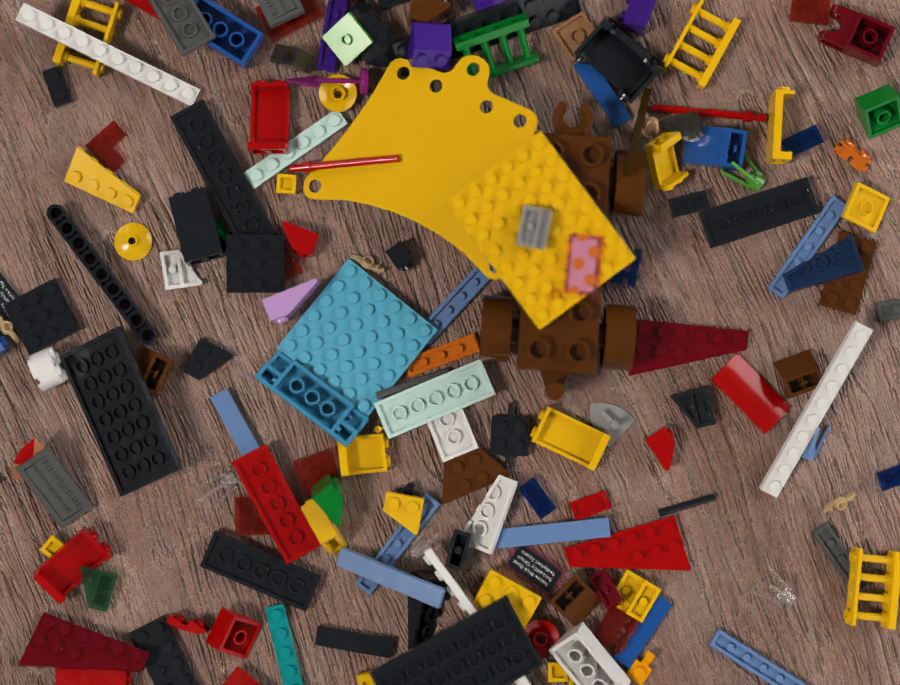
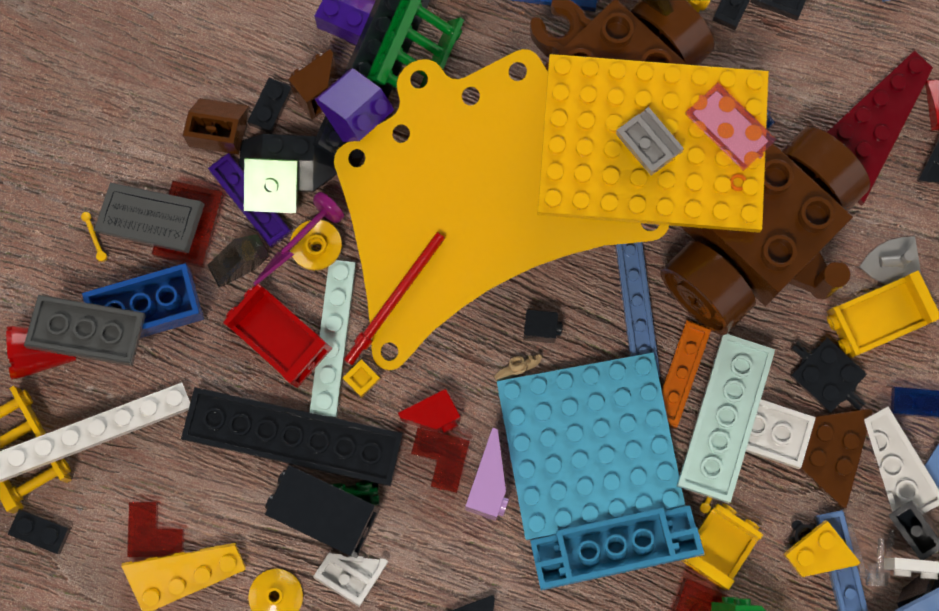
camera: 50 degrees left, 10 degrees down
(255, 264) = (417, 483): black plate -> none
(409, 384) = (687, 430): dark grey bar -> none

